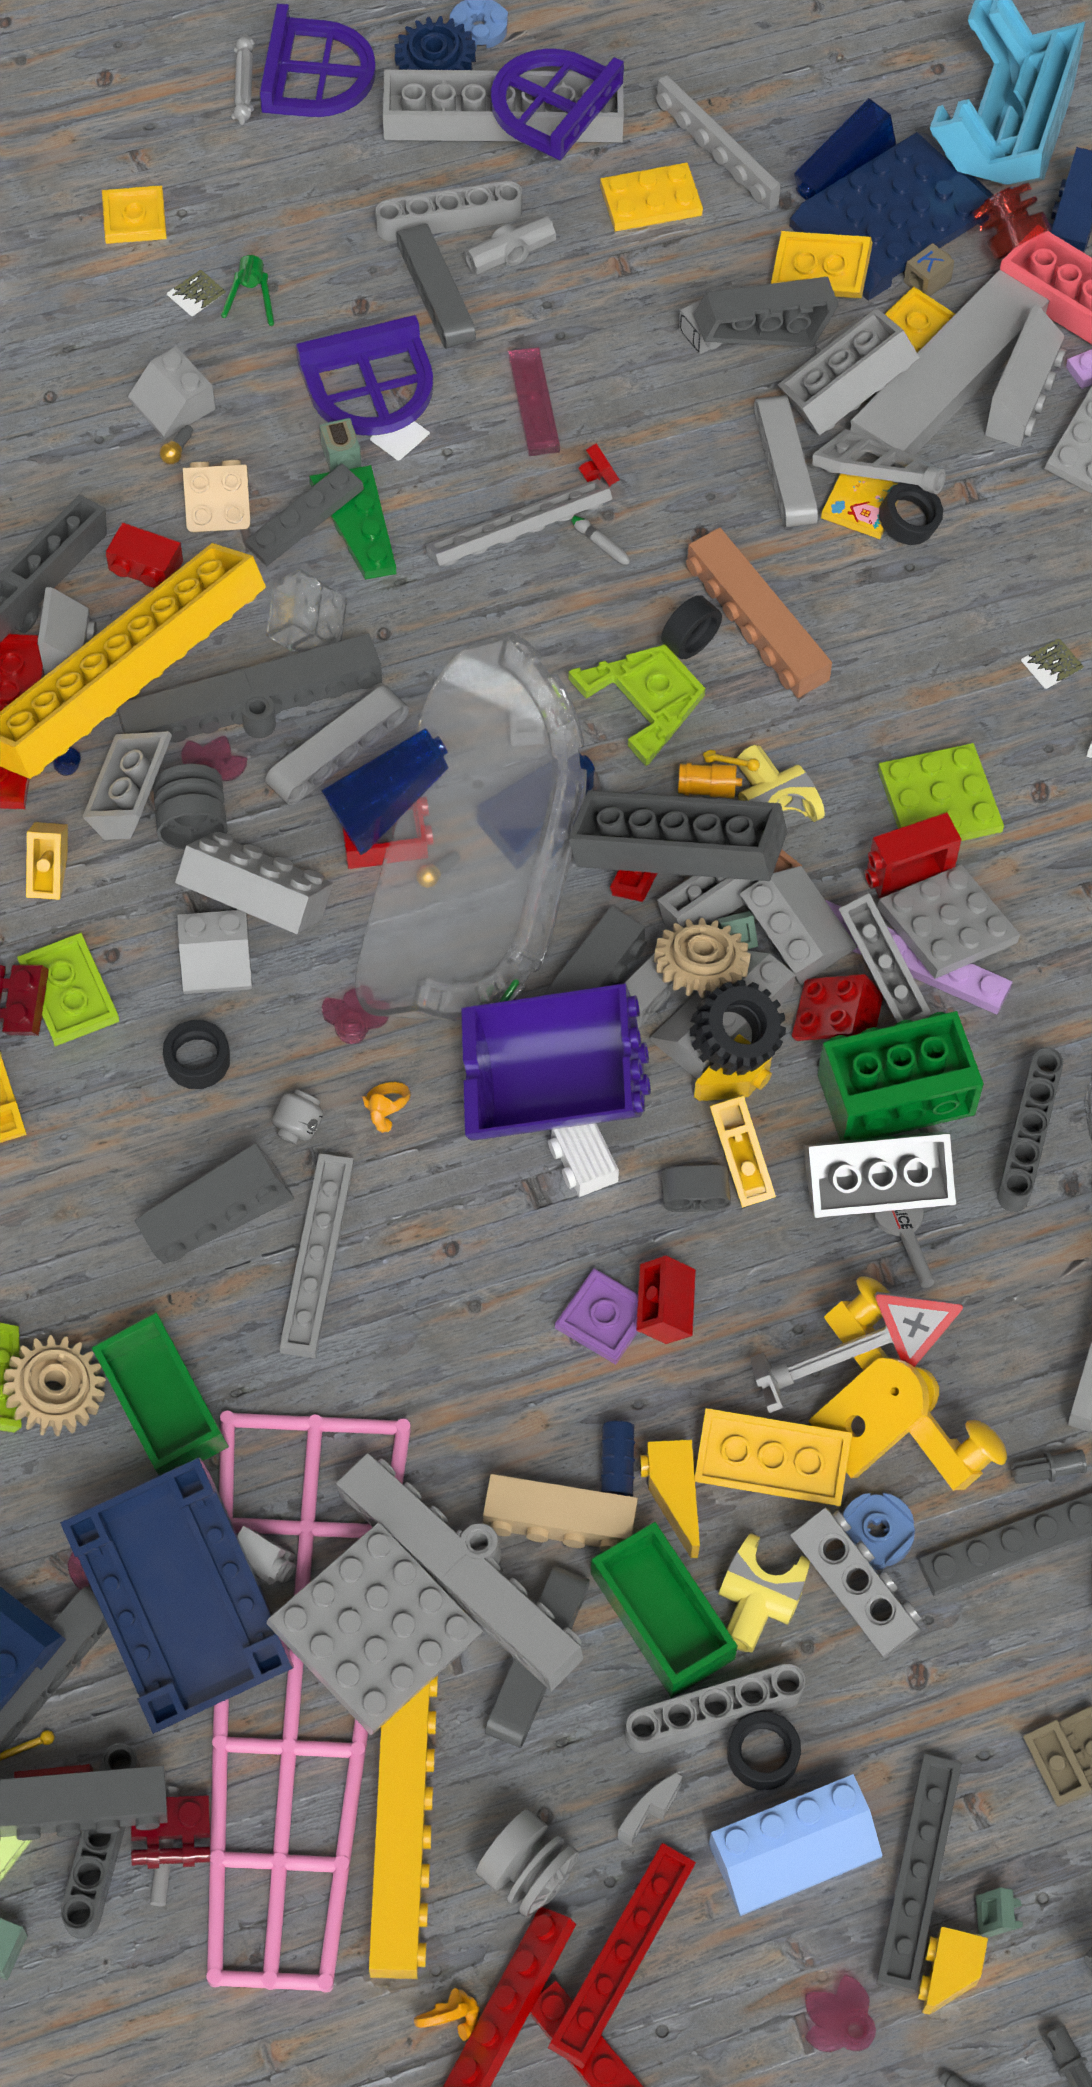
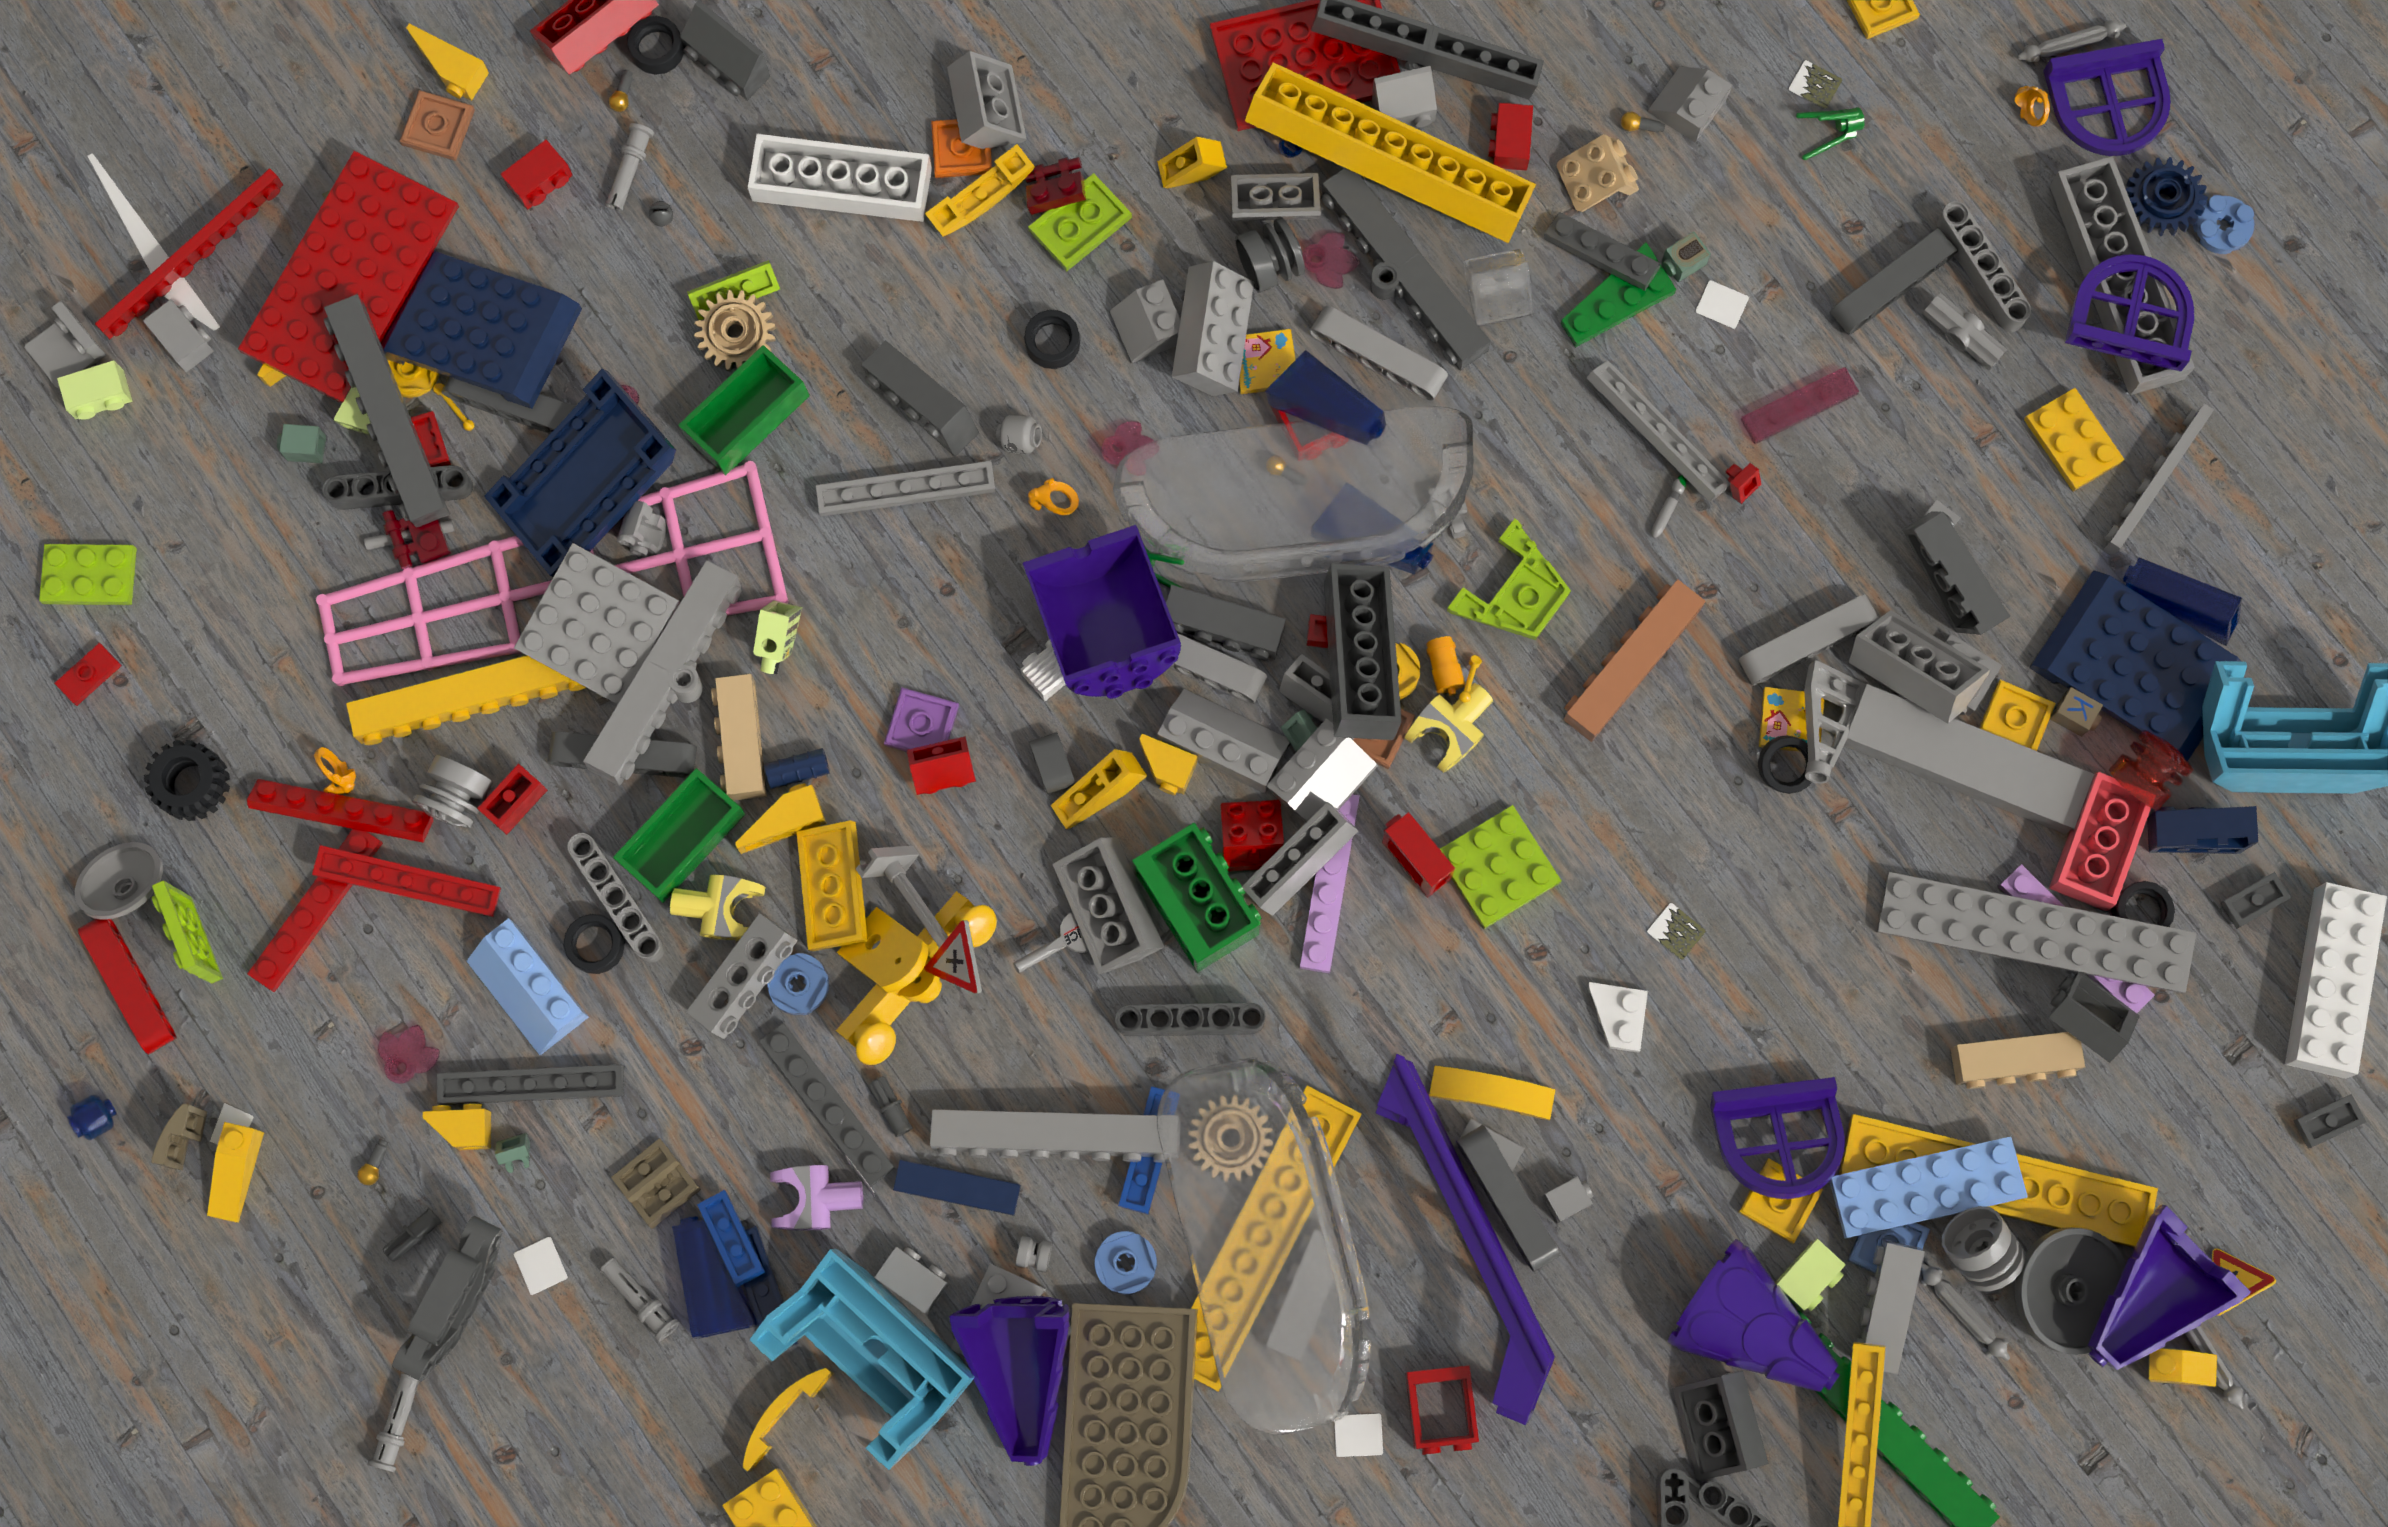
camera: 75 degrees right, 15 degrees up
(288, 130) = (2025, 100): none -> light orange piece
(307, 846) = (1265, 359): none -> yellow tile
(359, 348) = (1798, 239): dark purple window -> none
(450, 1434) = (779, 624): none -> yellowish green torso
(557, 1795) = (512, 799): none -> red brick
(655, 1802) = (529, 876): light grey slope -> none
(691, 627) = (1591, 606): black tyre -> none
(701, 957) = (1243, 719): tan gear -> none
(758, 1012) = (1161, 756): black tyre -> none
(818, 255) = (2041, 611): yellow plate -> none
(948, 921) = (1368, 902): light grey plate -> none
(1026, 379) = (1976, 829): light grey slope -> none

